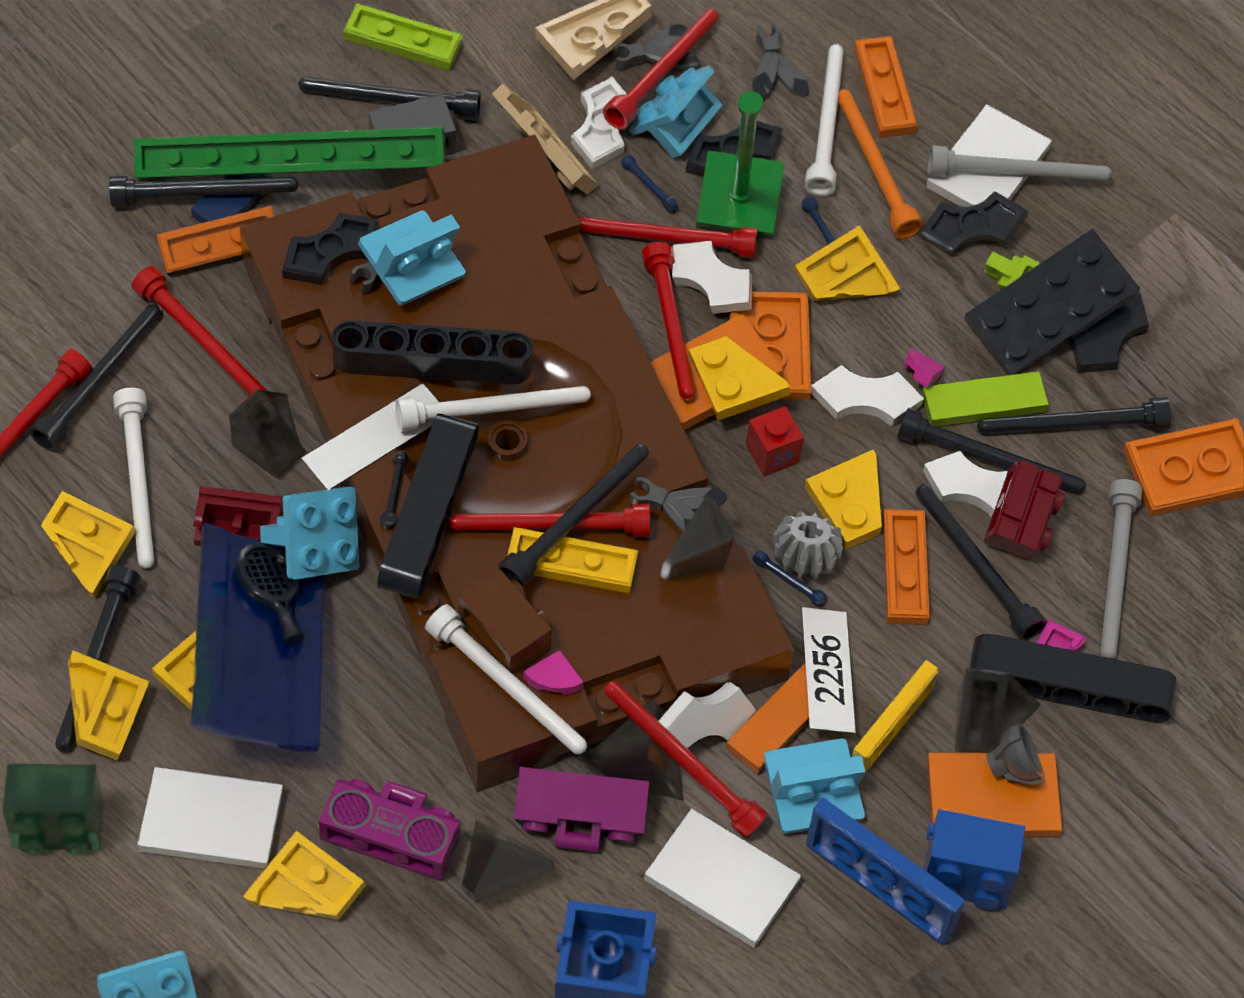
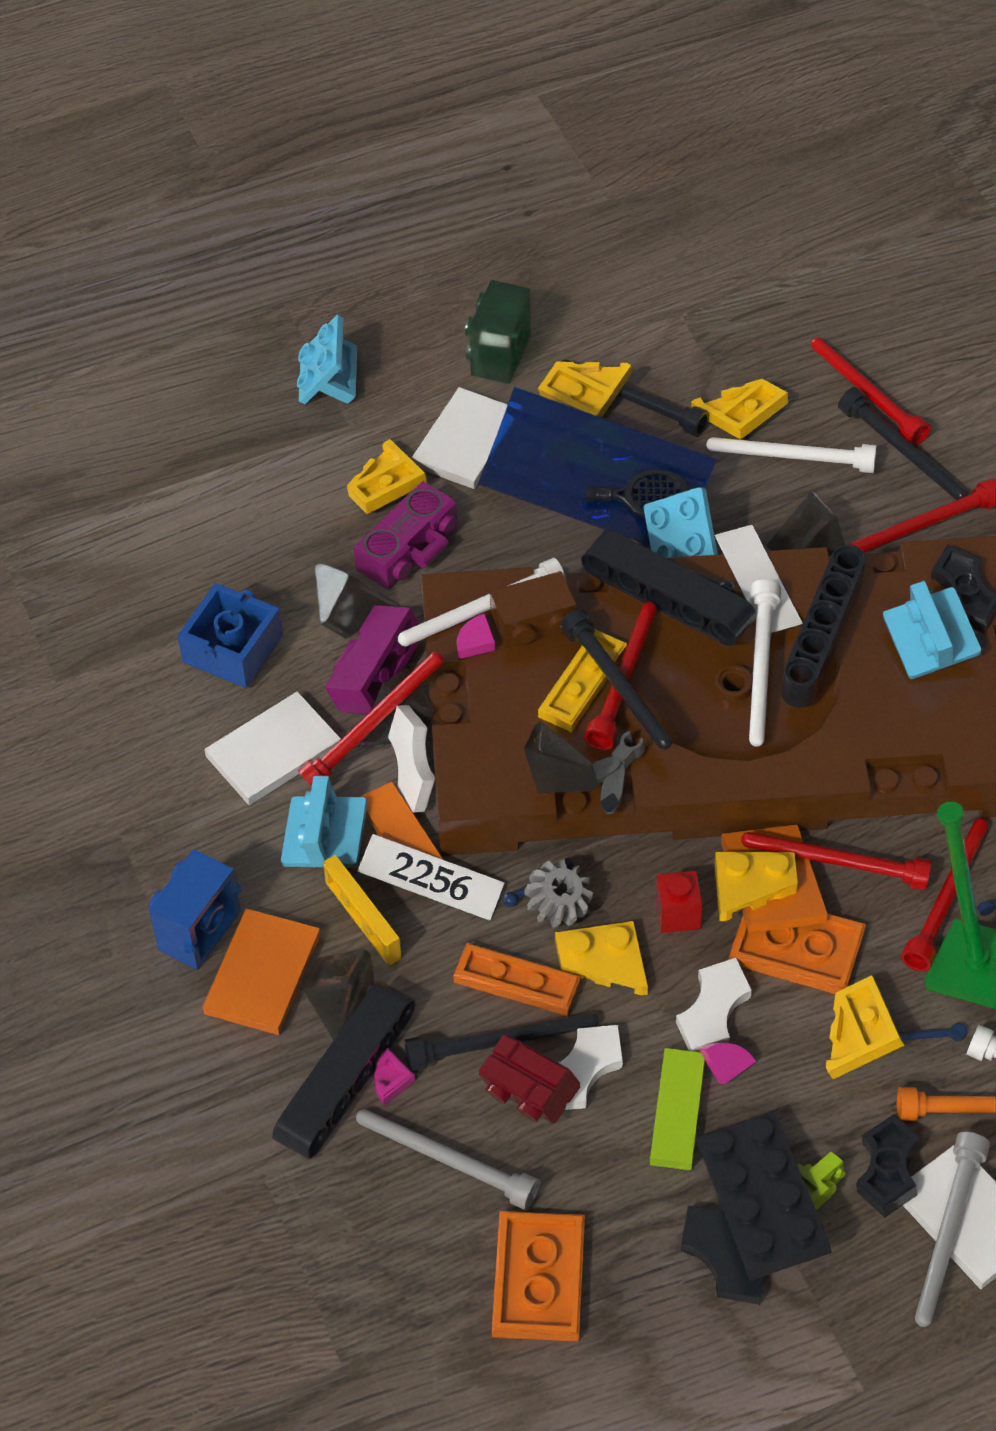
camera: 115 degrees right, 5 degrees down
(235, 511) = (732, 498): dark red hinge -> none
(724, 286) = (873, 913): white tile -> none
(884, 872) = (219, 834): blue tile -> none
(918, 428) = (662, 1031): black piece -> none
(1016, 757) = (274, 988): dark grey piece -> none
(1153, 413) = (609, 1255): black piece -> none

